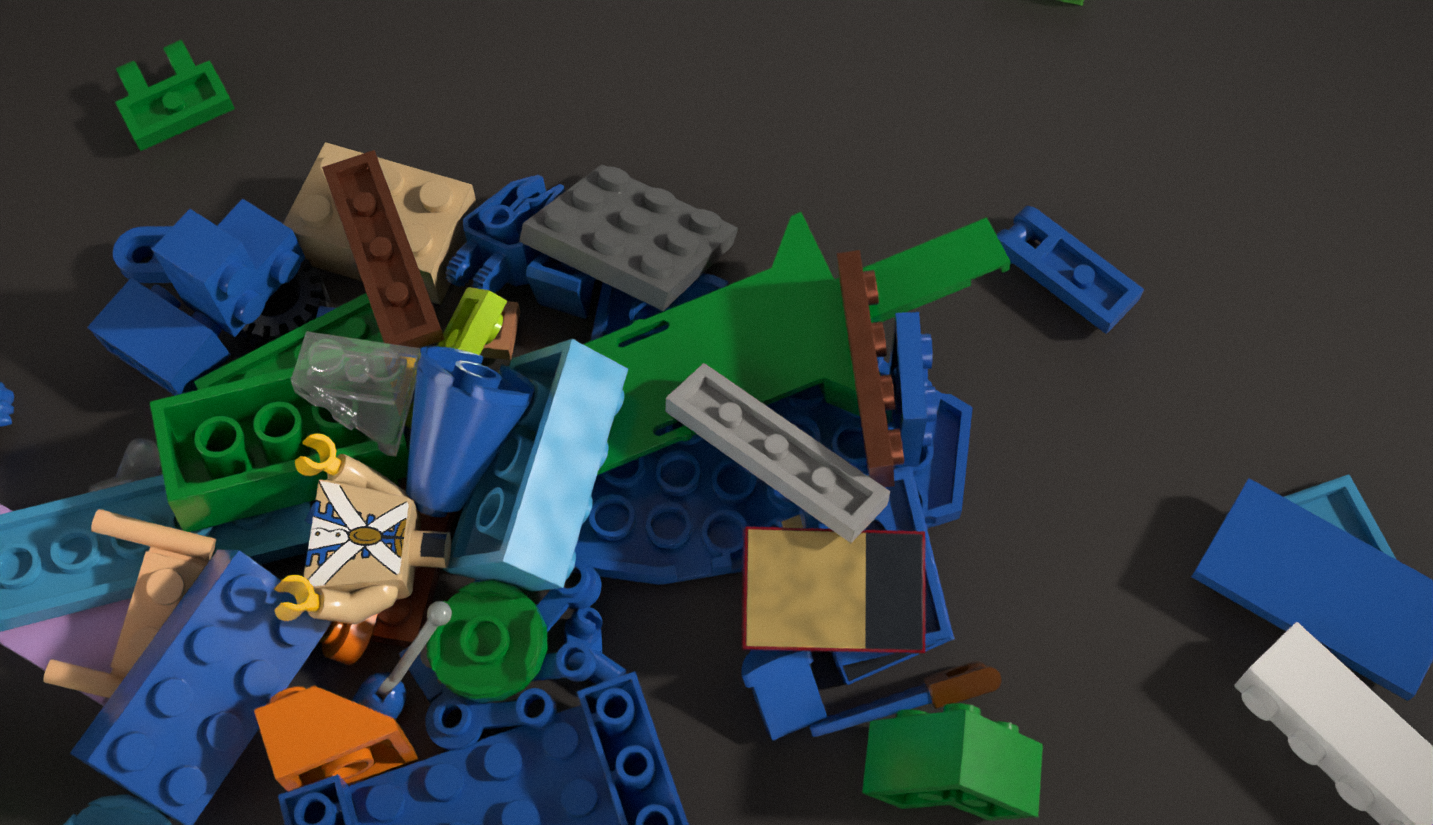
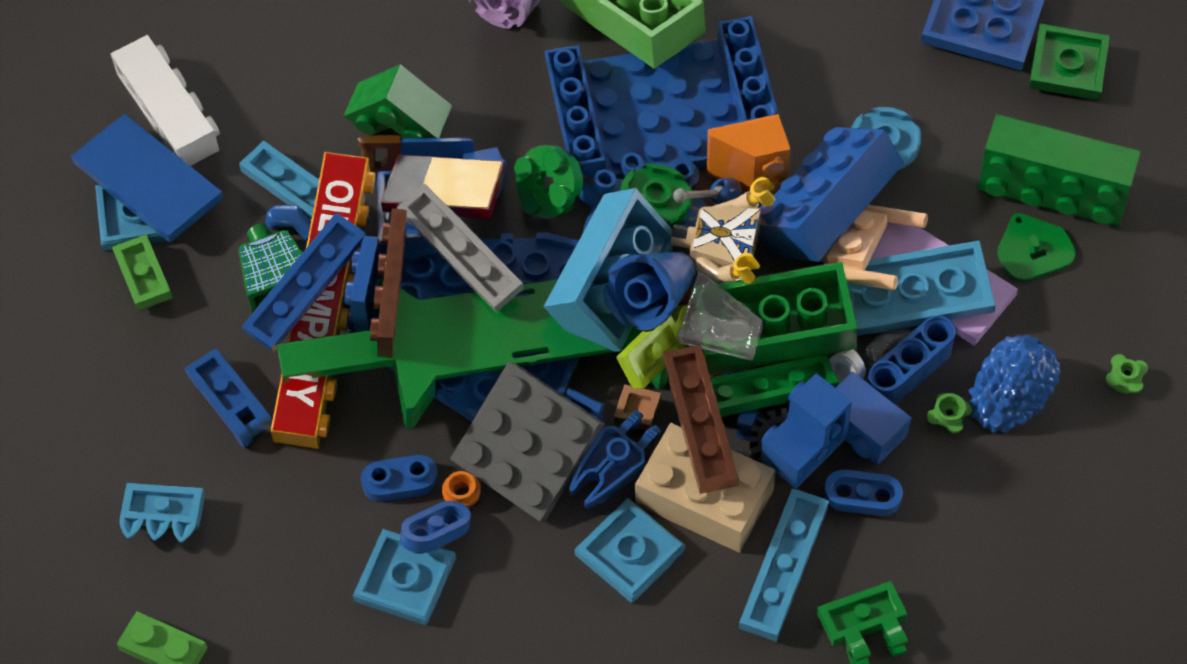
camera: 170 degrees left, 5 degrees down
(34, 377) = (952, 403): none -> bright green plate
(97, 416) = (918, 348): none -> blue beam
(280, 138) = (783, 565): none -> dark azure plate
(481, 147) = (630, 550): none -> dark azure tile
(669, 654) = (531, 186): none -> green plate
(714, 180) = (462, 480): none -> orange plate
(731, 123) = (435, 527): none -> blue plate
(764, 84) = (402, 580): none -> dark azure tile
(802, 195) = (399, 479): none -> blue plate
(980, 427) = (303, 400): none -> brick
(998, 361) = (304, 282): none -> blue plate
(1066, 605) = (282, 177): none -> dark azure plate
(1069, 557) = (288, 216): none -> blue arm
(1070, 464) = (265, 261): none -> green torso
(1101, 110) = (161, 508): none -> dark azure plate
(1267, 435) = (142, 272): none -> bright green plate

